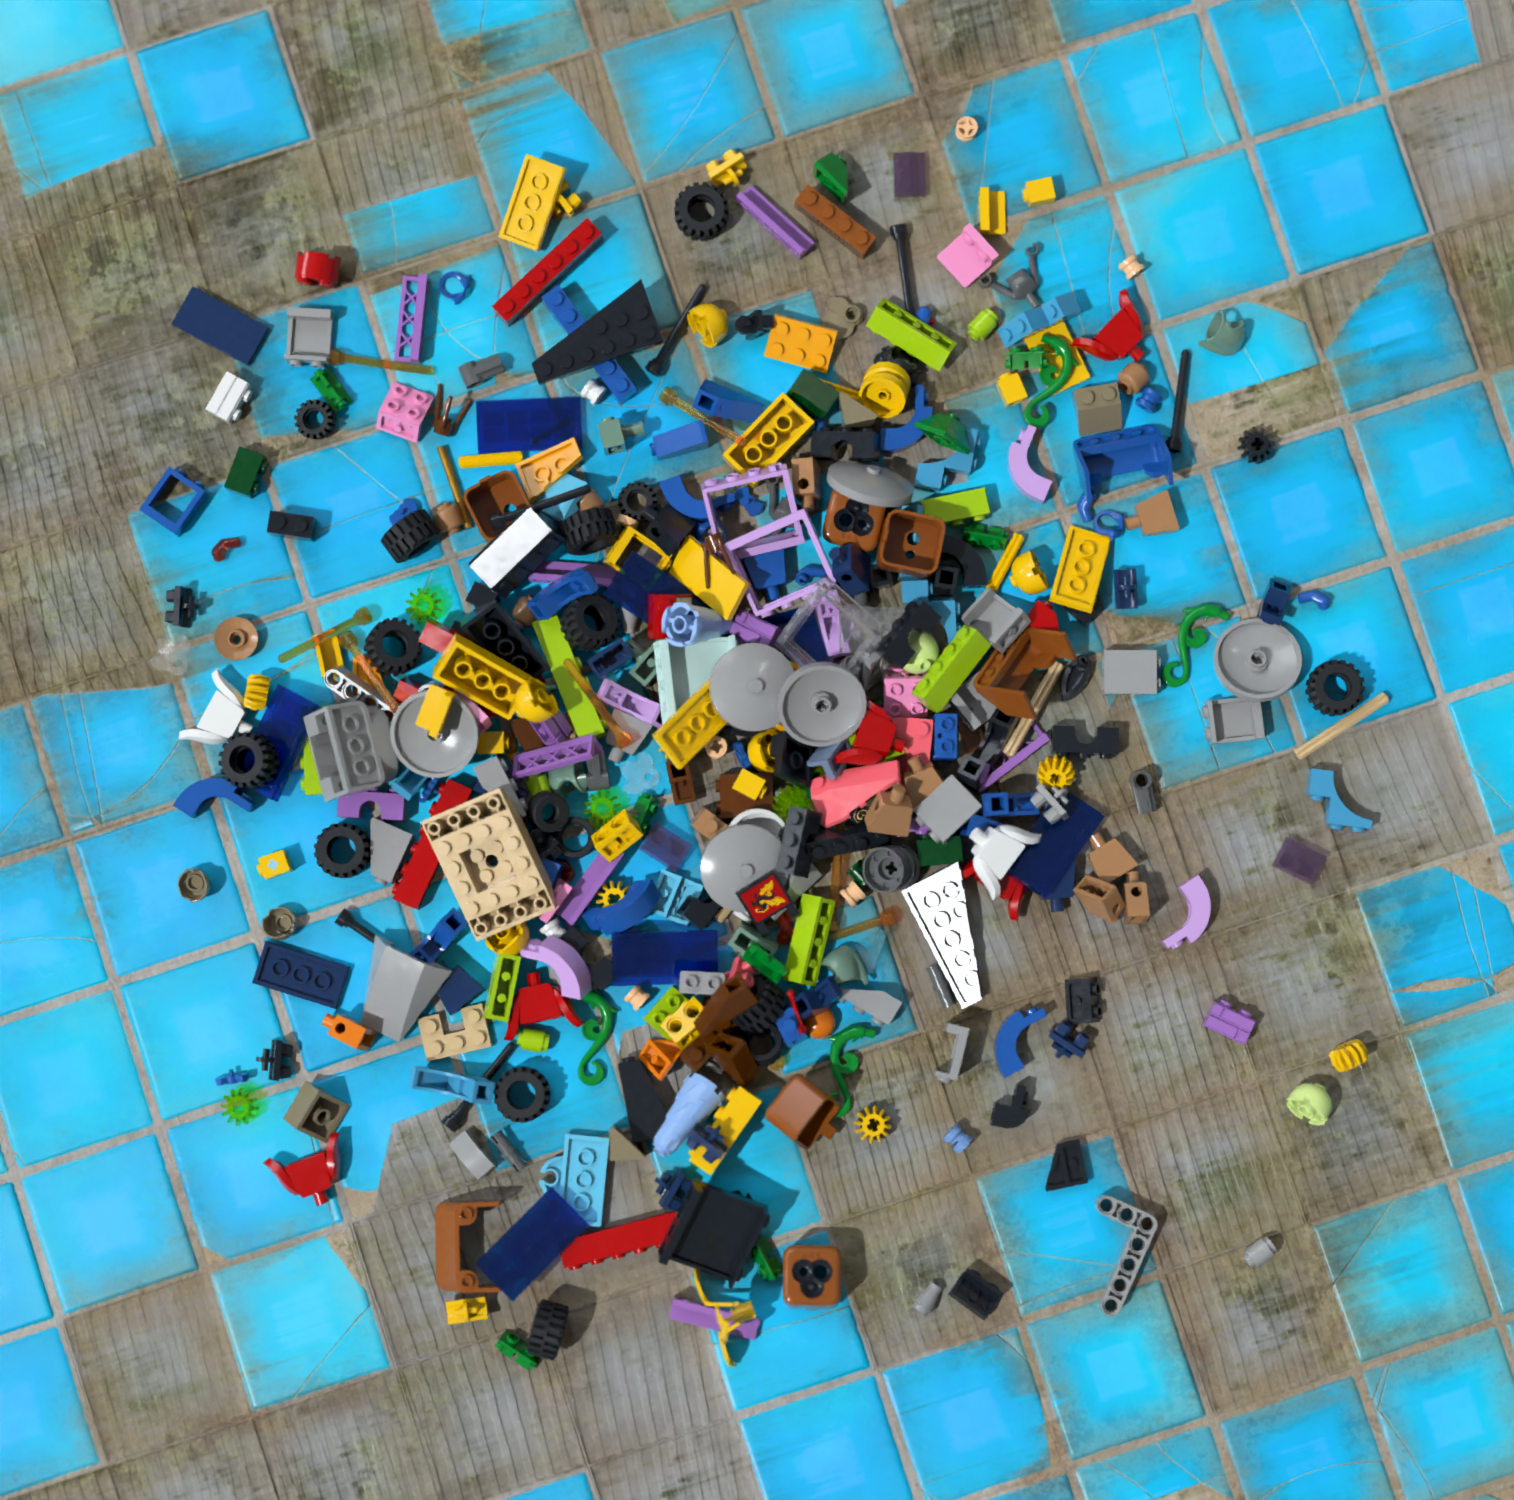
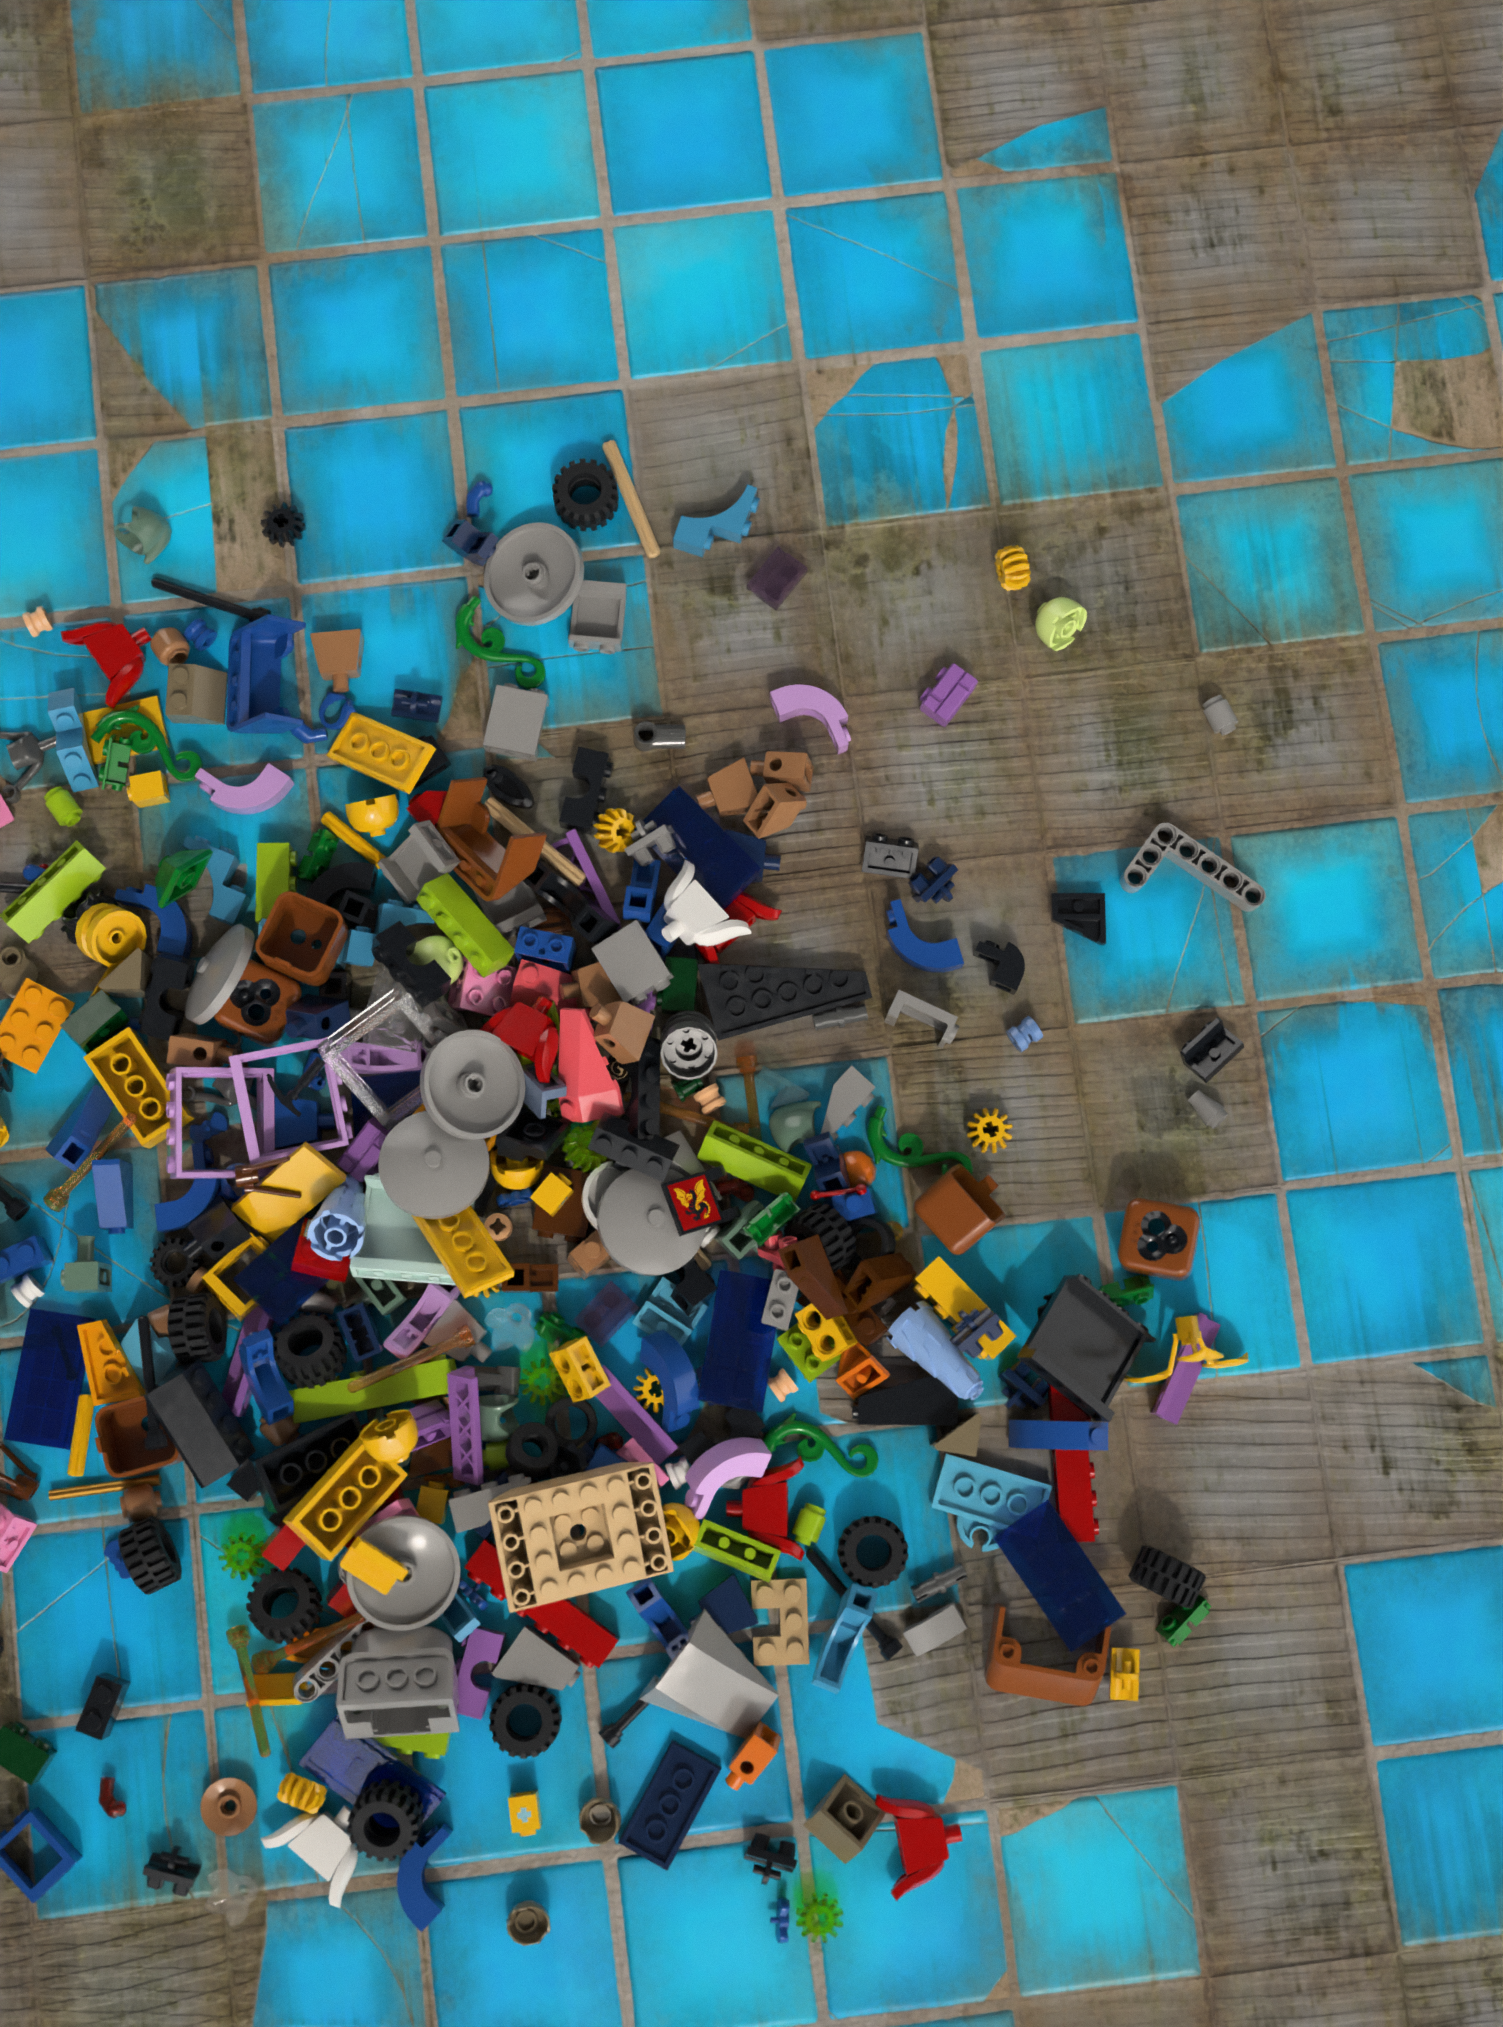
camera: 80 degrees left, 5 degrees down
(640, 1224) = (1058, 1435): none -> blue arch
(795, 570) = (303, 1082): none -> black piece

